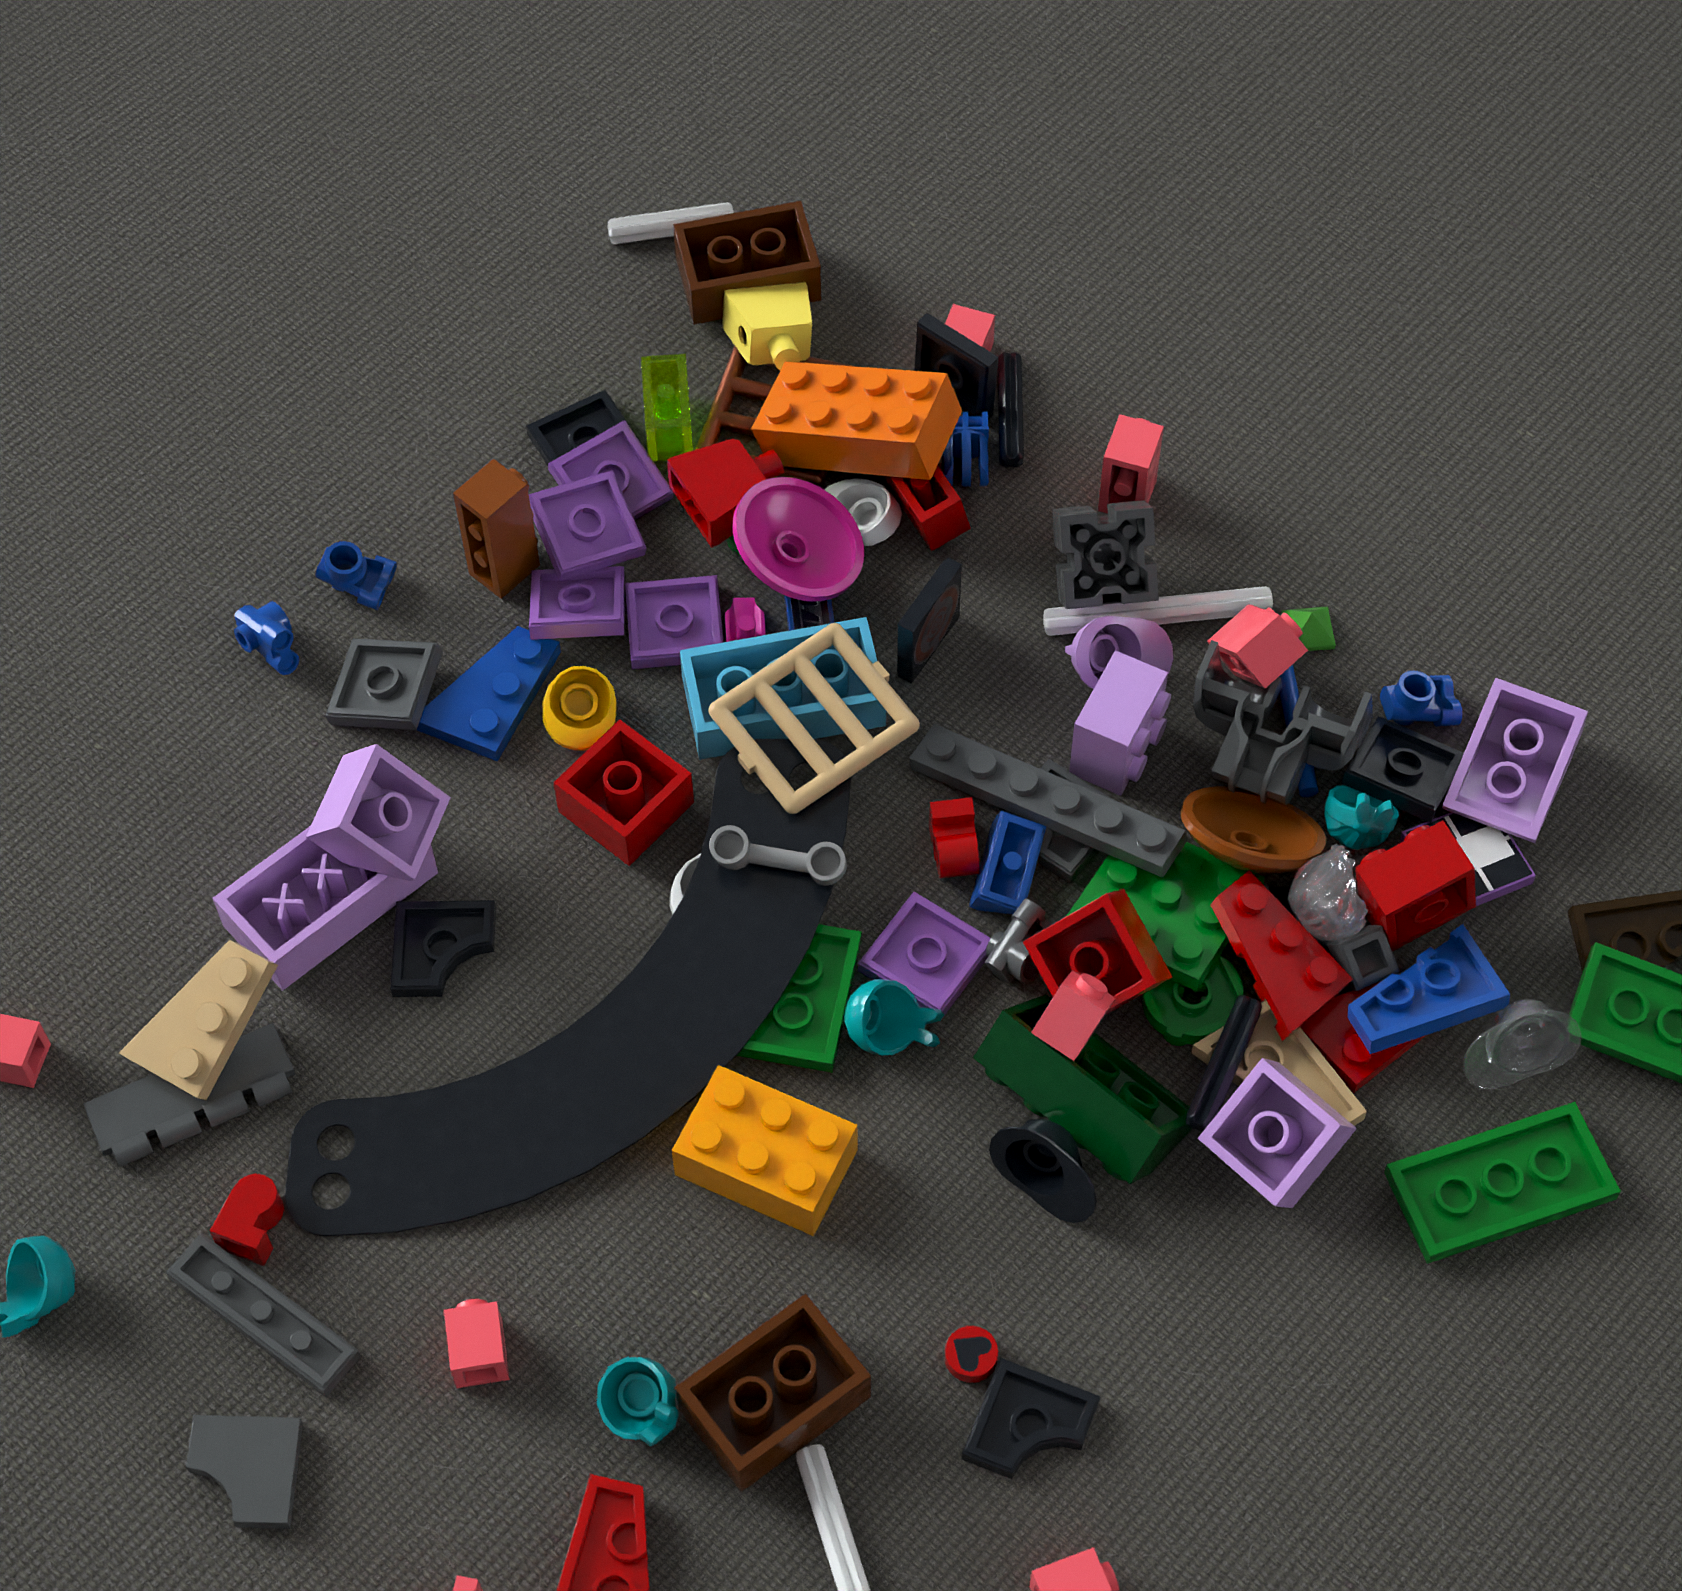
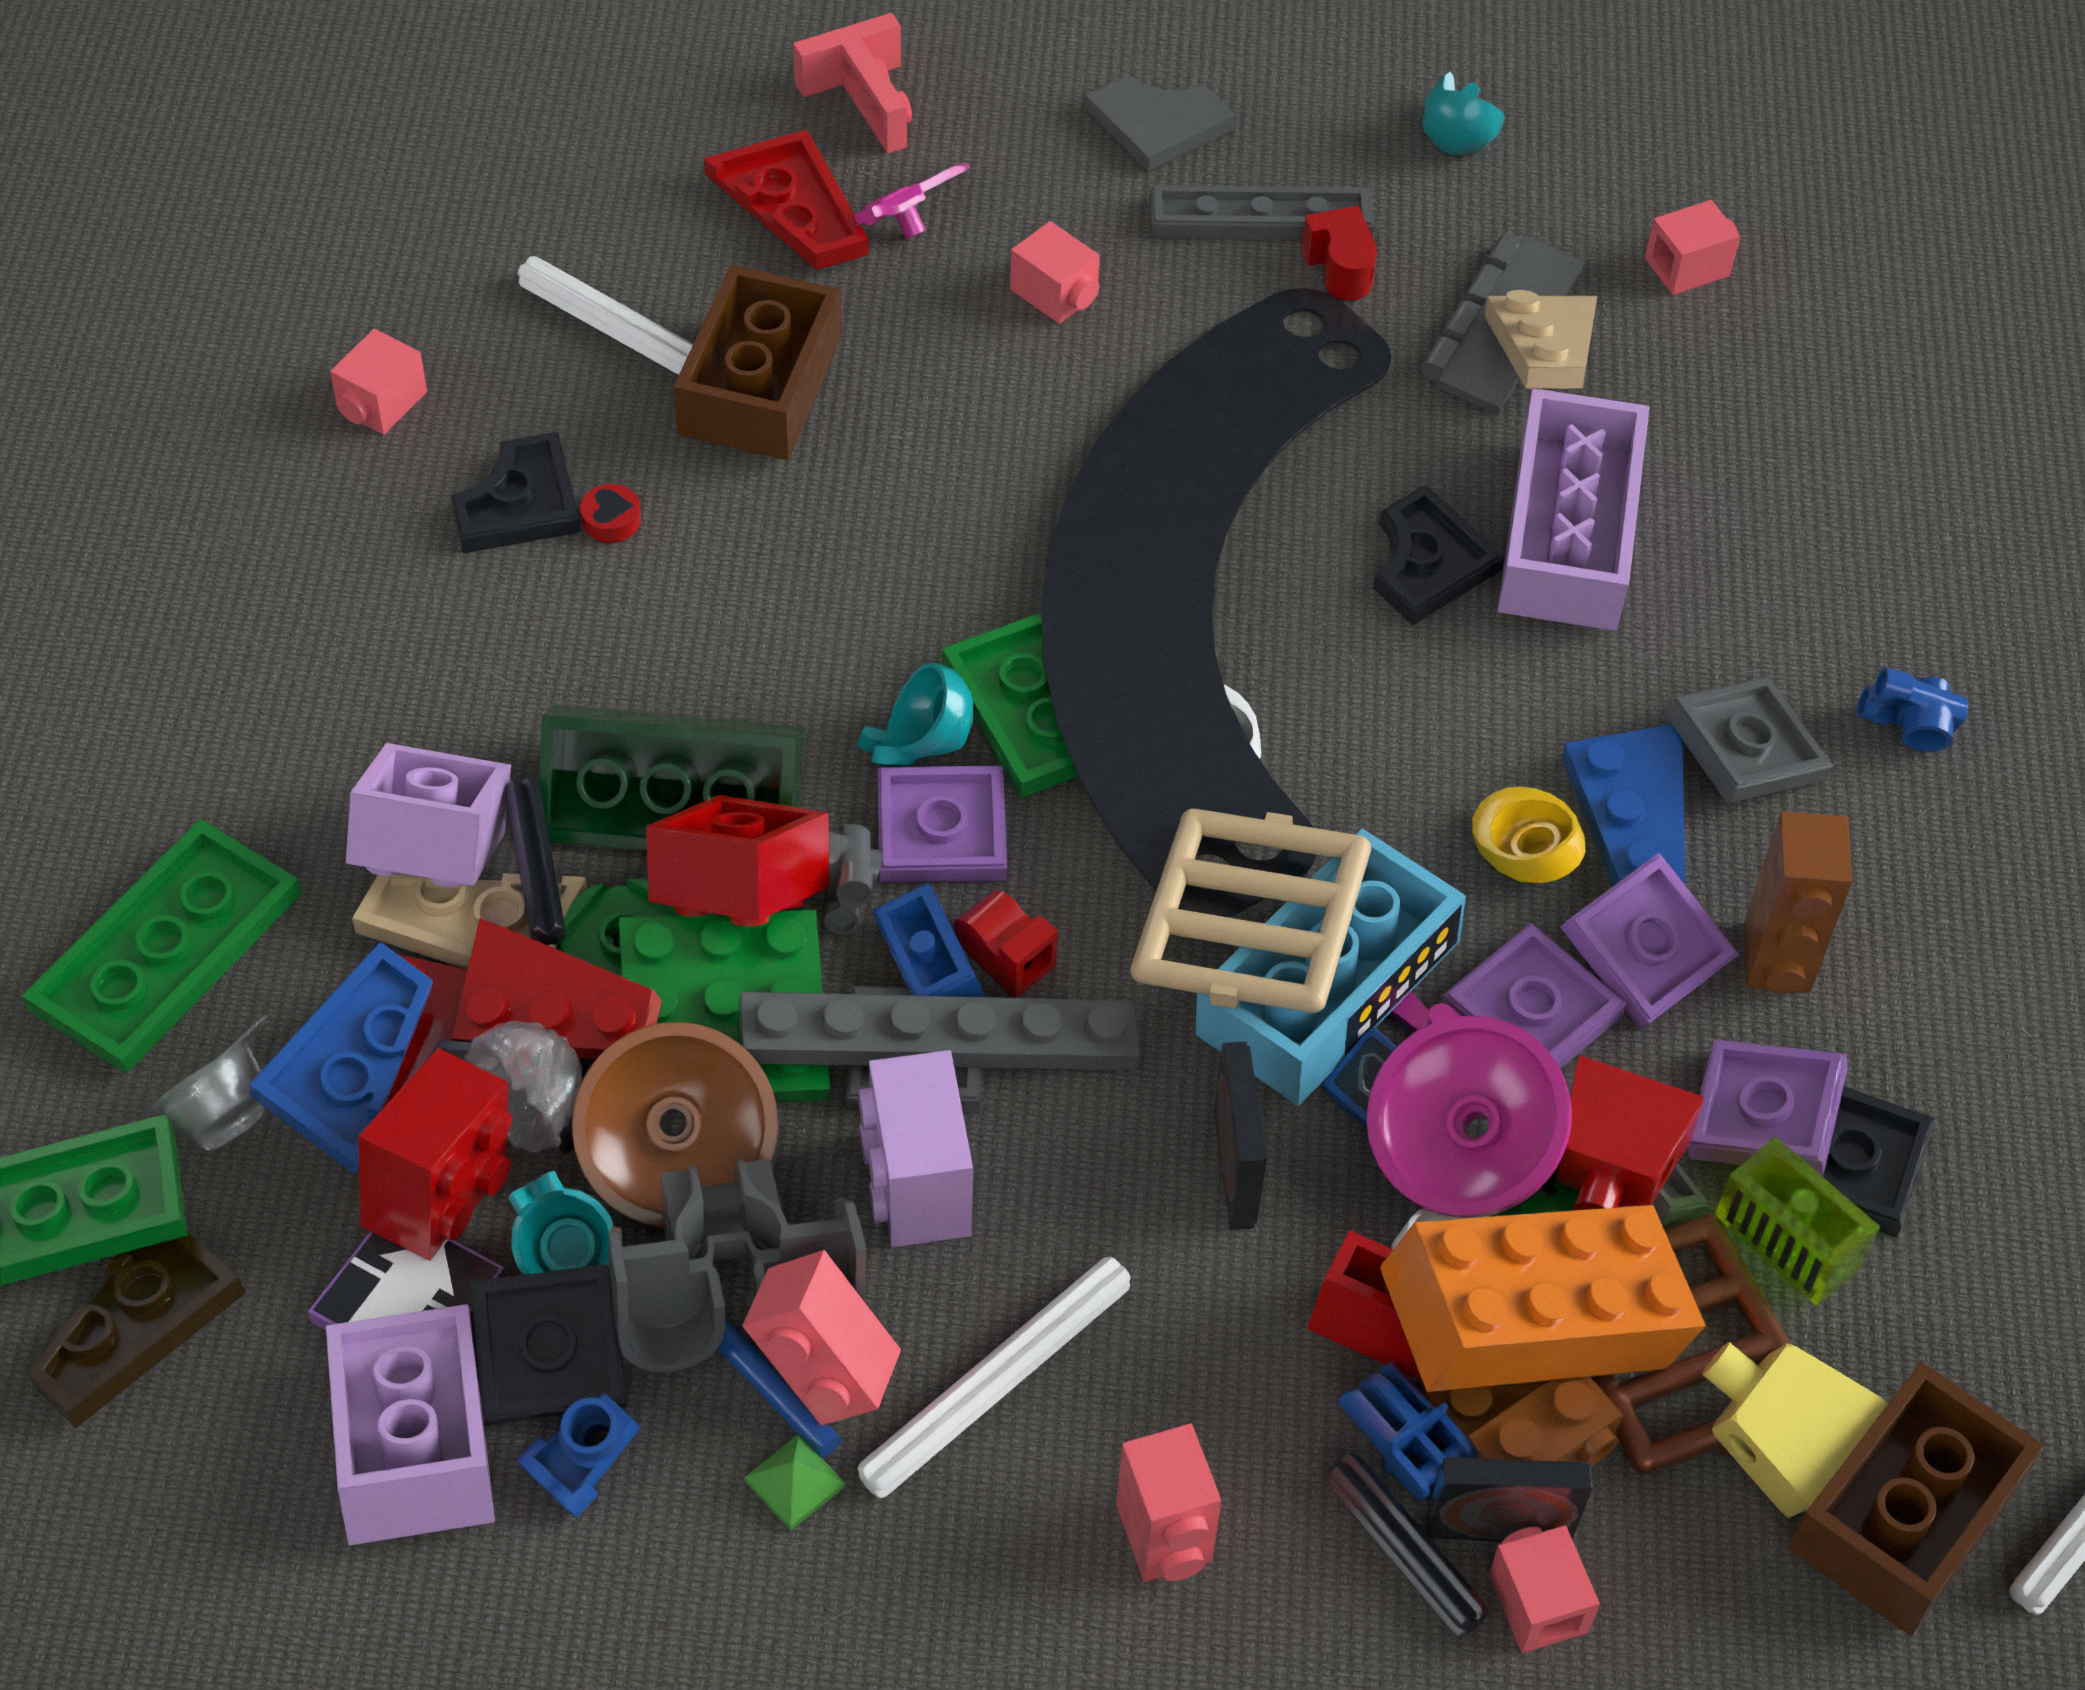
camera: 140 degrees right, 5 degrees down
(355, 574) = (1908, 827): blue plate -> none
(378, 814) = (1573, 531): lavender slope -> none
(532, 1497) = (903, 201): none -> dark pink piece
(586, 525) = (1728, 1015): medium lavender tile -> none
(624, 792) = (1387, 759): red brick -> none
(638, 1399) = (870, 305): teal piece -> none
(734, 851) = (1212, 745): light grey bar -> none
(765, 1150) = (939, 542): light orange brick -> none
(1046, 1166) = (656, 679): black piece -> none
(1073, 1014) = (716, 768): coral brick -> none
(1105, 554) = (1104, 1351): dark grey brick -> none
(1131, 636) = (998, 1258): lavender piece -> none

